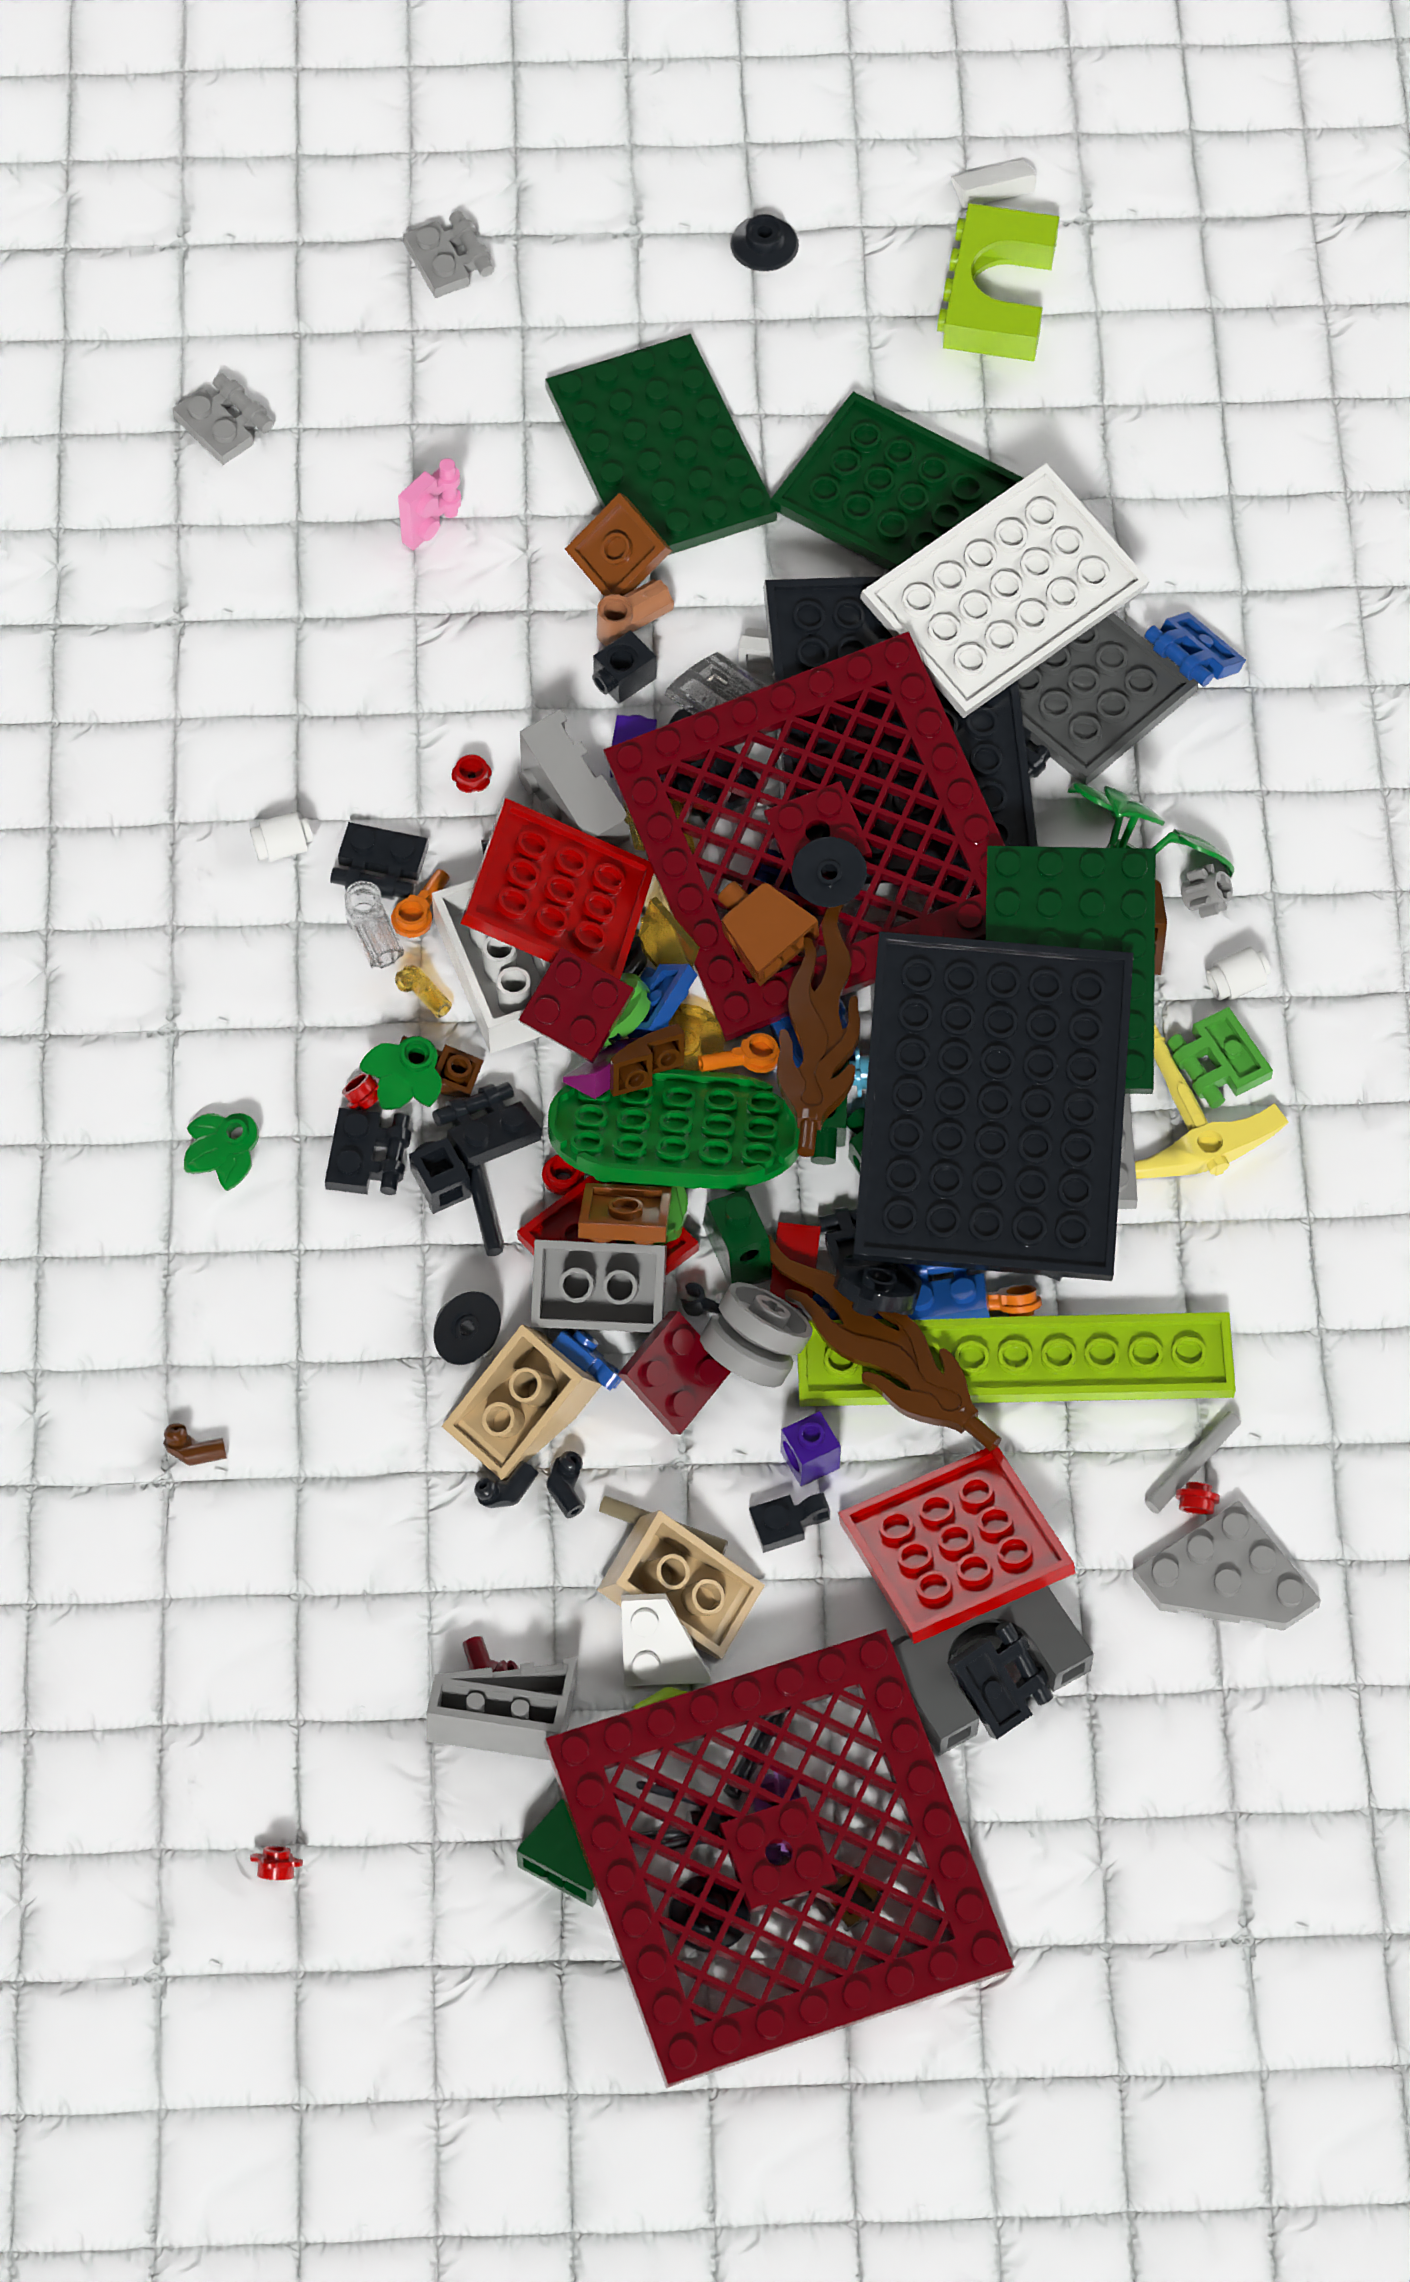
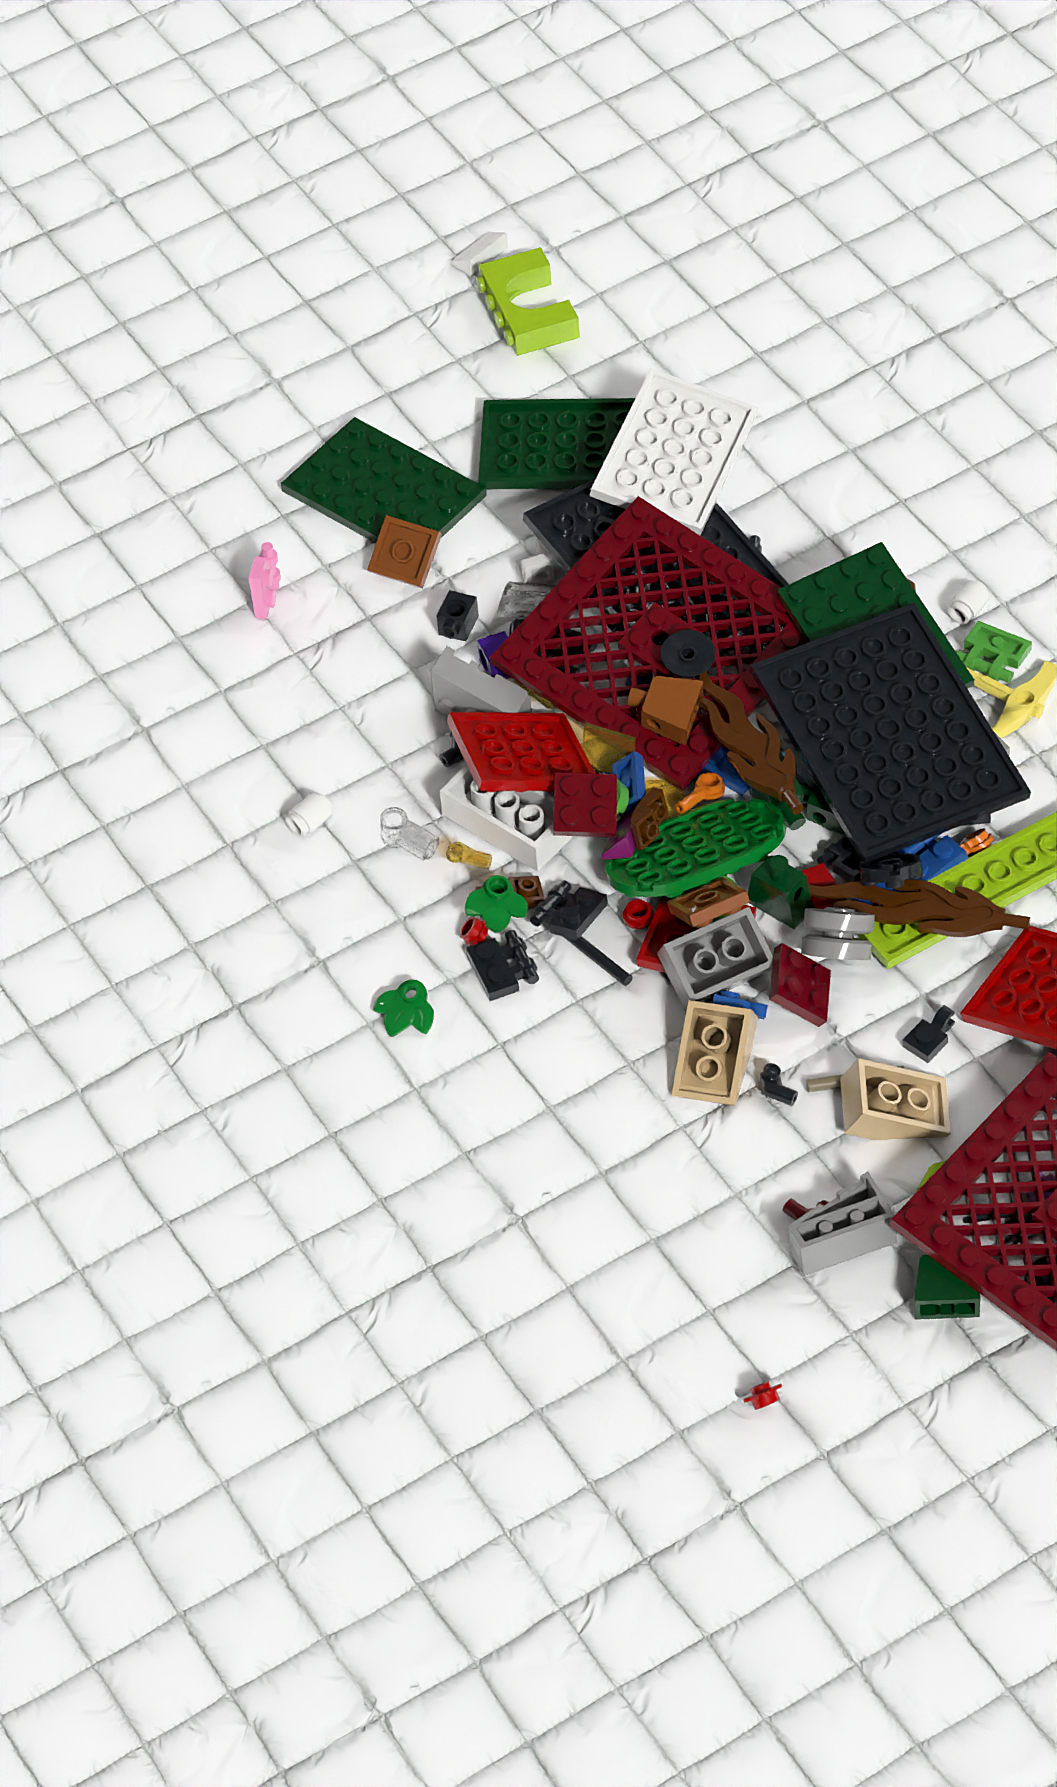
camera: 25 degrees left, 10 degrees down
(190, 1450) = (520, 1191): reddish brown arm -> none
(214, 426) = (84, 609): light grey plate -> none
(382, 852) = (377, 794): black plate -> none
(413, 915) = (428, 814): orange plate -> none
(437, 259) = (157, 450): light grey plate -> none
(440, 1174) = (561, 951): black brick -> none
(468, 766) = (404, 721): red plate -> none
(478, 1332) = (646, 1027): black piece -> none
(508, 1492) = (743, 1110): black arm -> none
(632, 611) = (436, 584): nougat piece -> none
(657, 1644) = (908, 1141): white wing -> none
(700, 1305) = (775, 938): black hand -> none
(764, 243) = (360, 349): black piece -> none
(810, 1448) = (916, 985): dark purple brick -> none
(1100, 697) = (769, 493): dark grey plate -> none
(1123, 806) = (889, 542): green plant -> none
(1194, 649) = (804, 440): blue plate -> none
(1206, 890) = (916, 564): light grey gear -> none

